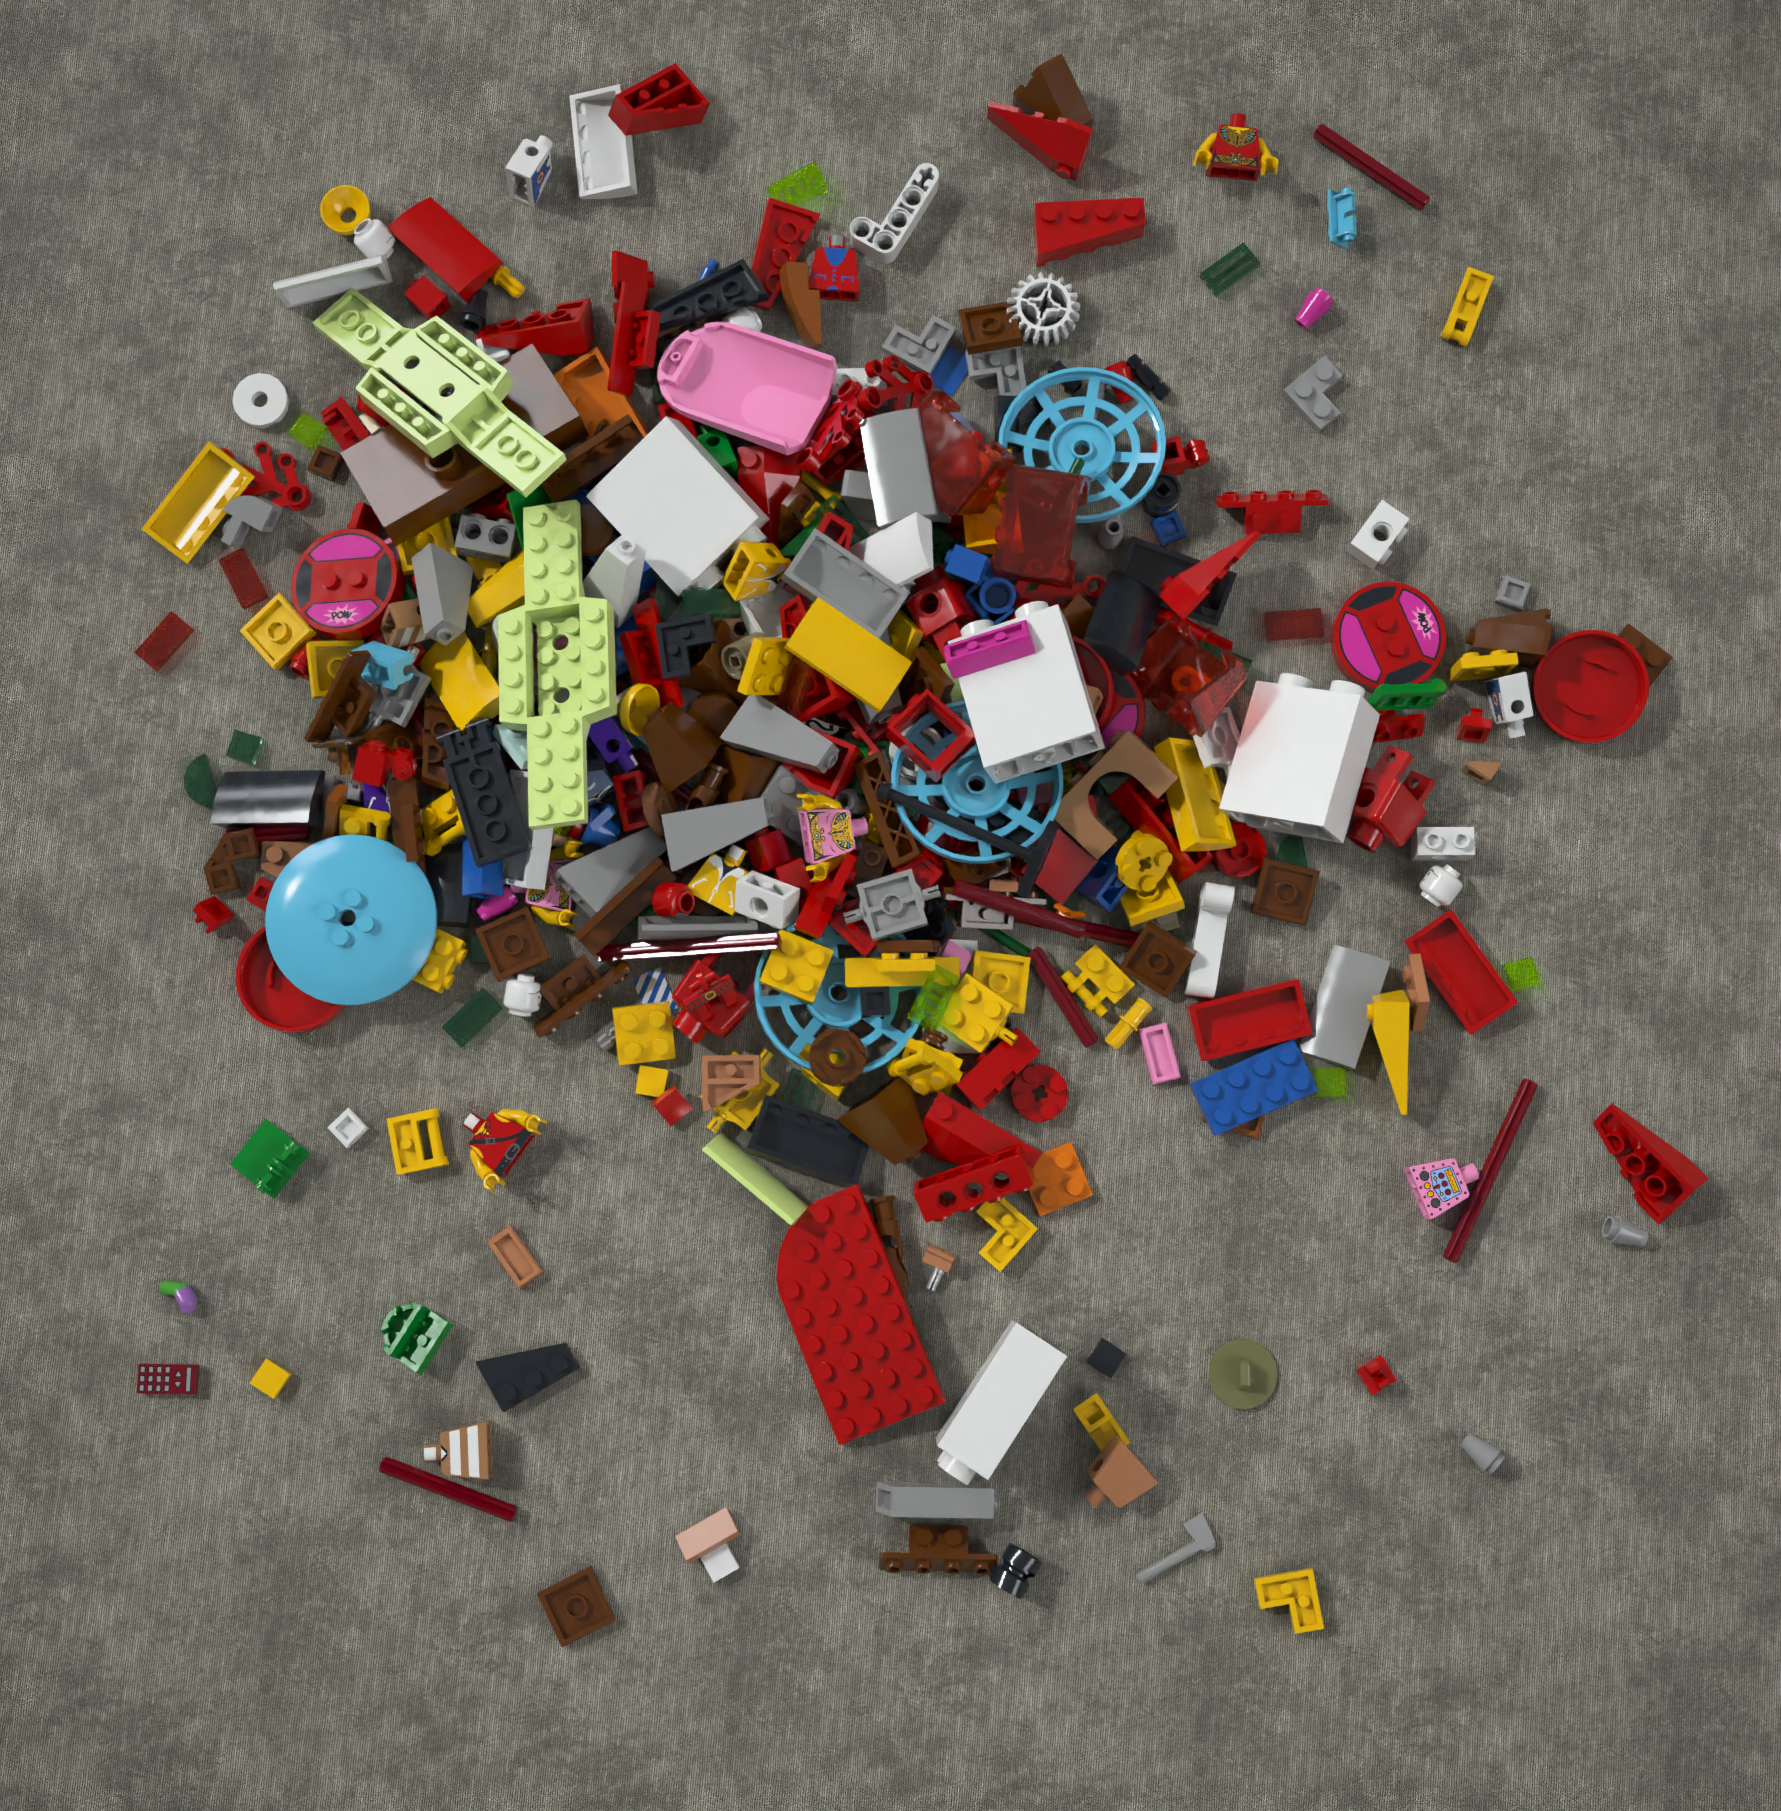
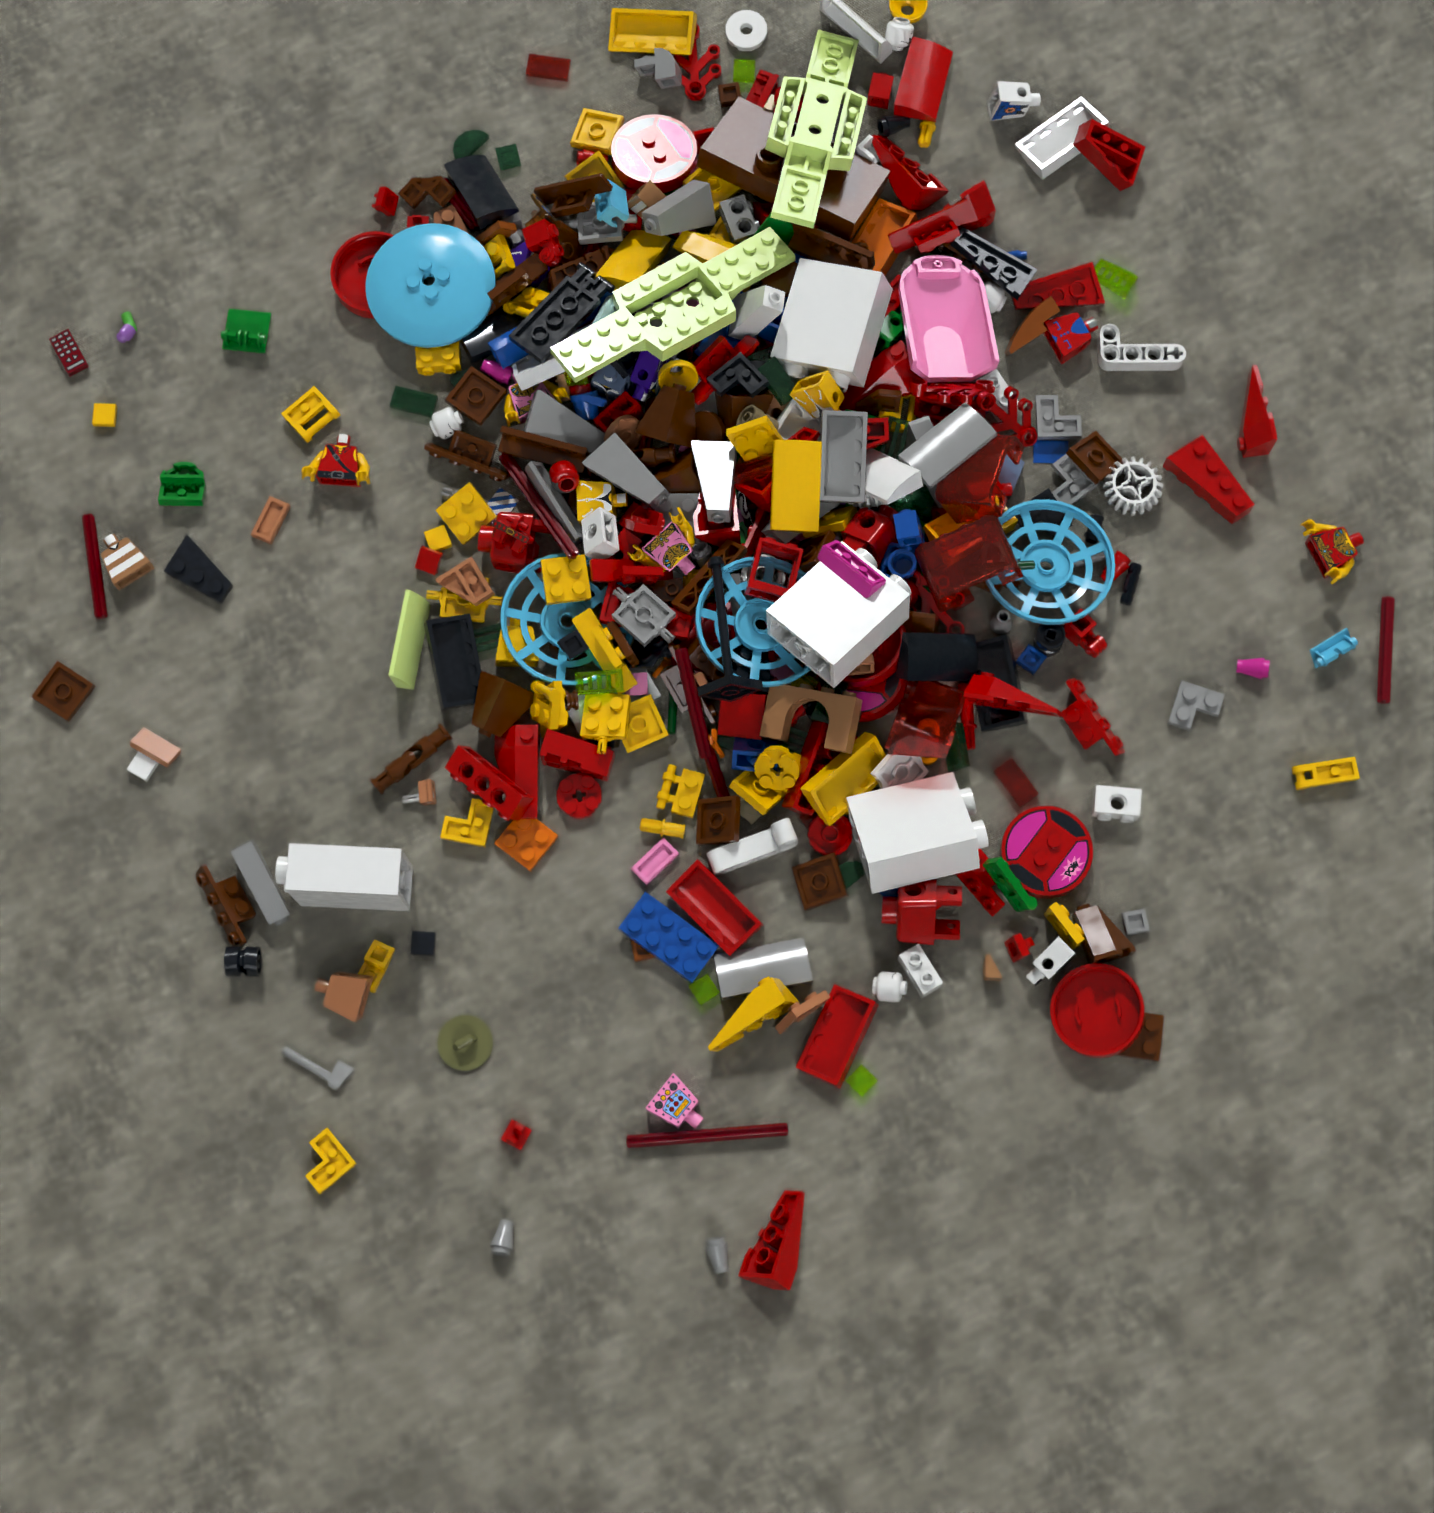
camera: 60 degrees right, 5 degrees down
(243, 578) = (620, 90): clear red tile -> none
(348, 1128) = (295, 367): white tile -> none
(790, 840) = (651, 524): none -> red bracket
(834, 1074) = (516, 653): reddish brown tile -> none
(853, 1318) = (353, 757): red plate -> none
(1054, 93) = (1288, 404): reddish brown slope -> none
(1062, 997) = (655, 773): dark red axle -> none
(1212, 283) = (1242, 603): clear green tile -> none

